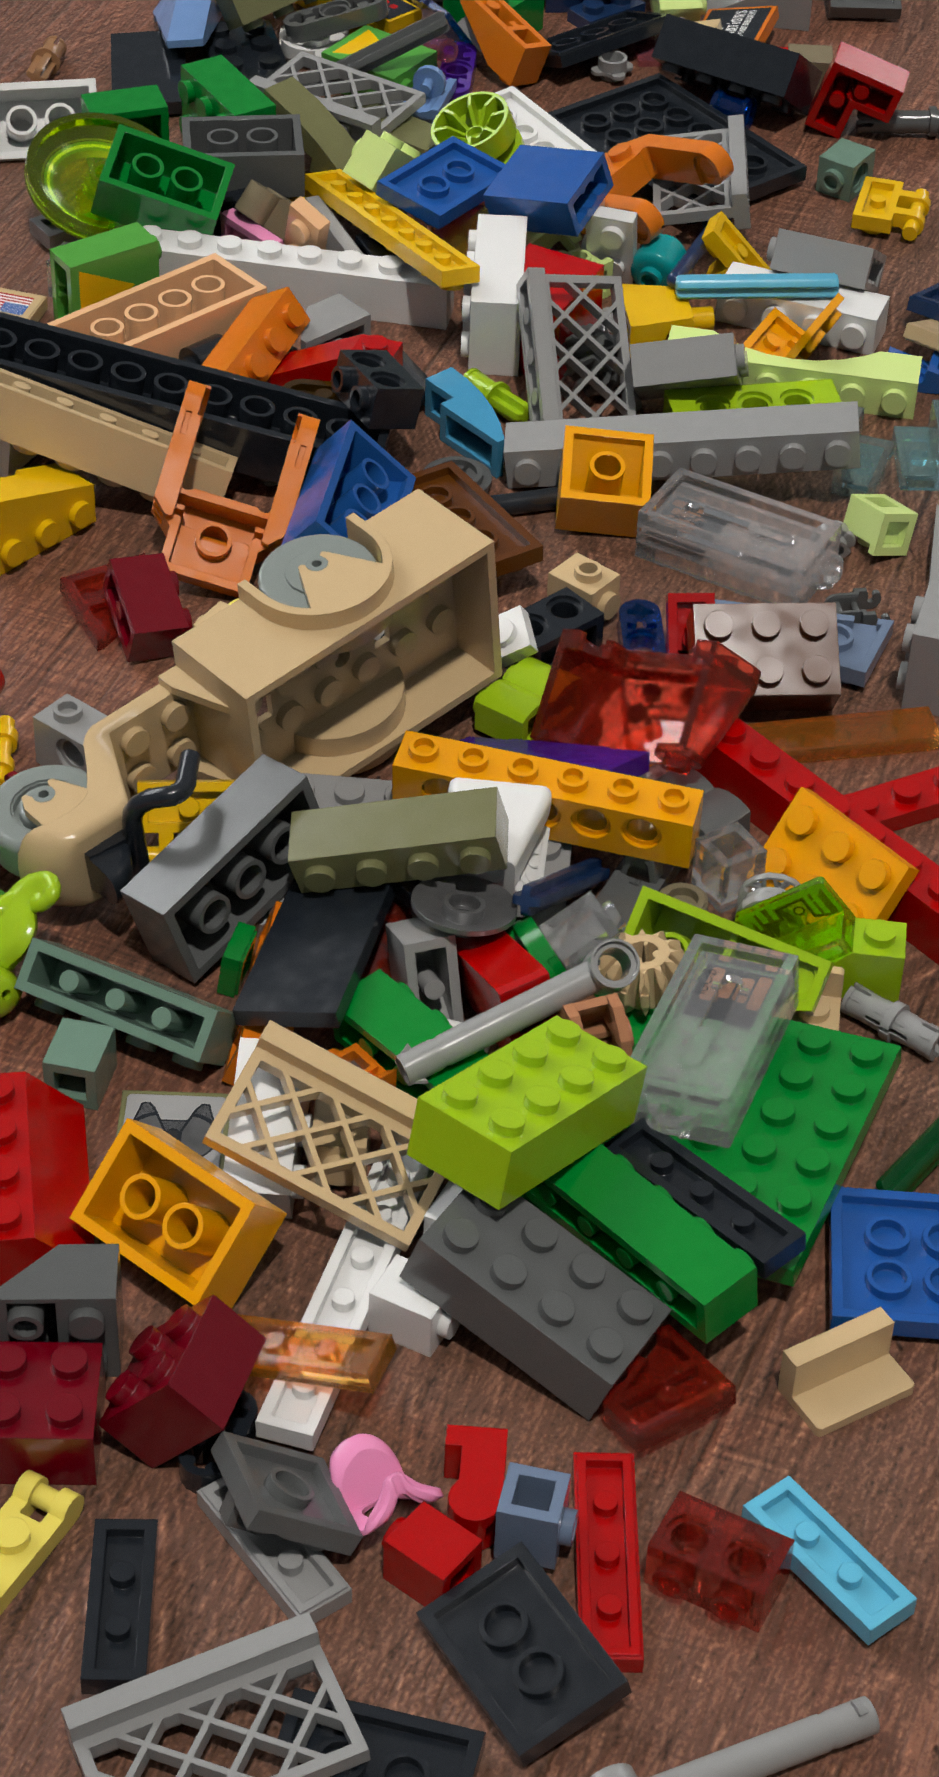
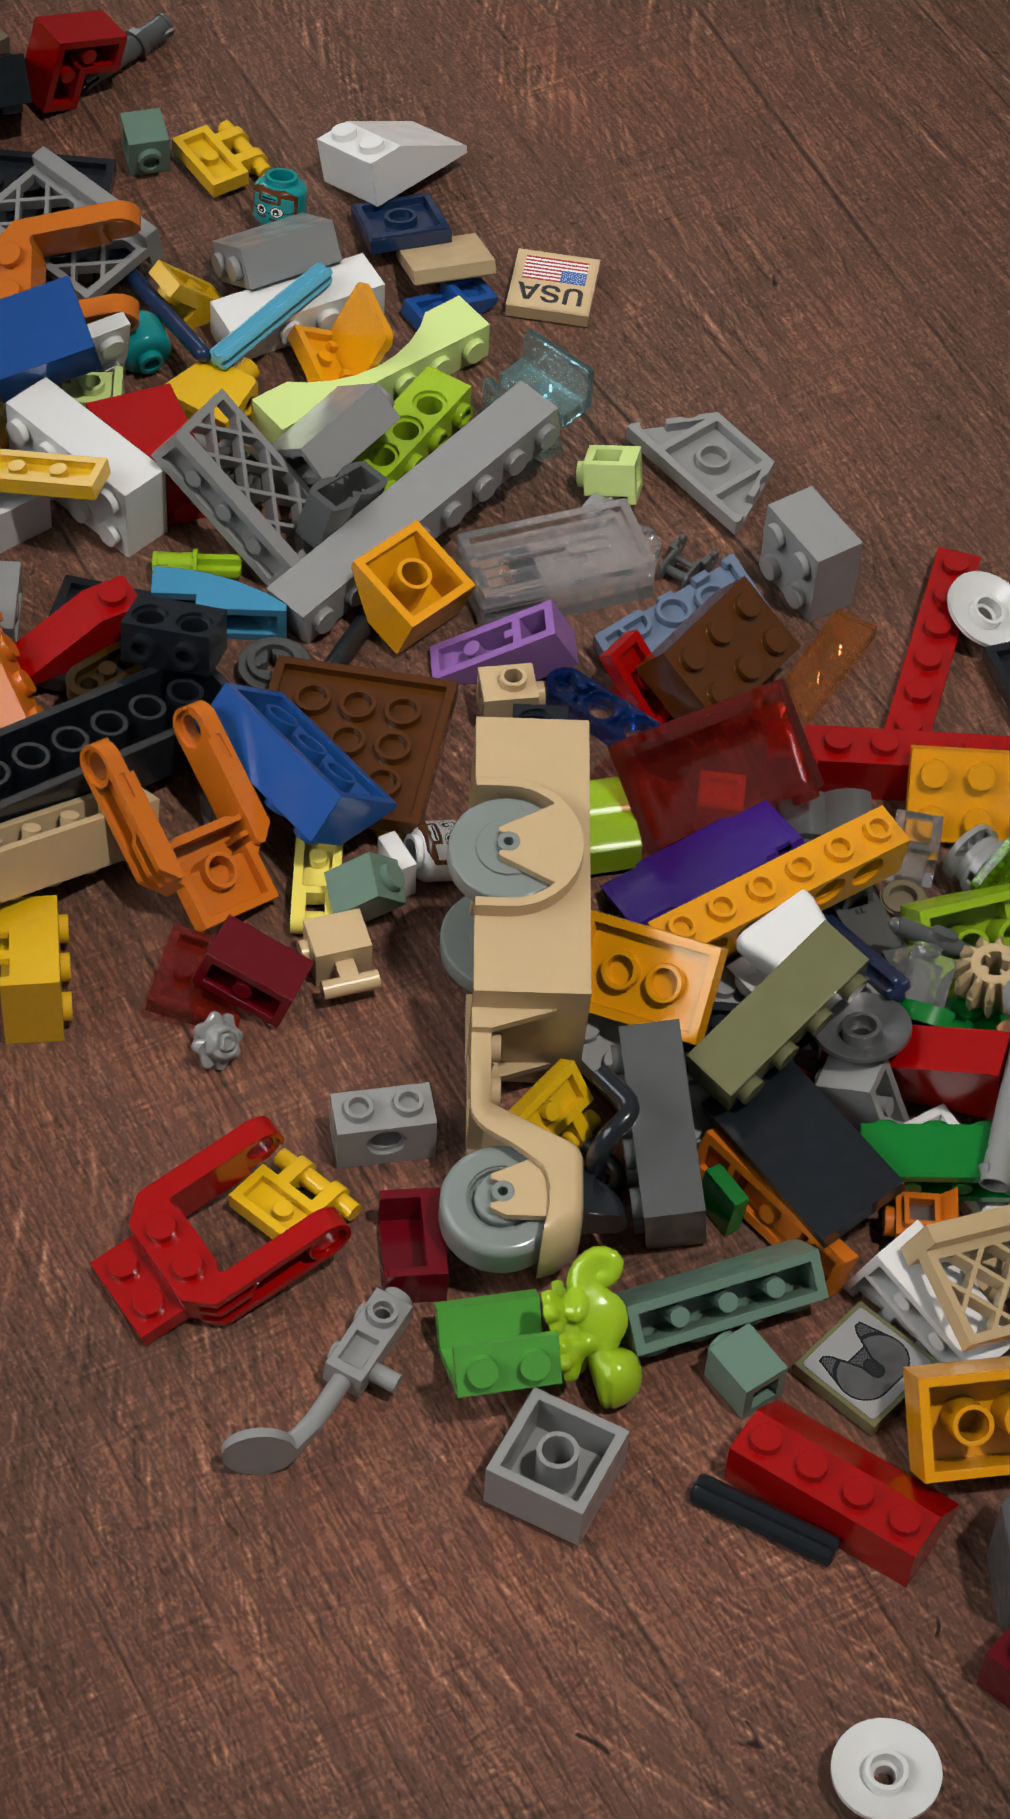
camera: 50 degrees left, 10 degrees up
(69, 633) = (217, 1040): none -> light grey plant
(357, 756) = (652, 975): none -> light orange plate
(621, 394) = (337, 500): none -> dark grey brick
(632, 910) = (937, 935): none -> dark grey piece
(645, 564) = (529, 636): none -> medium lavender slope
(888, 235) = (279, 195): none -> teal head

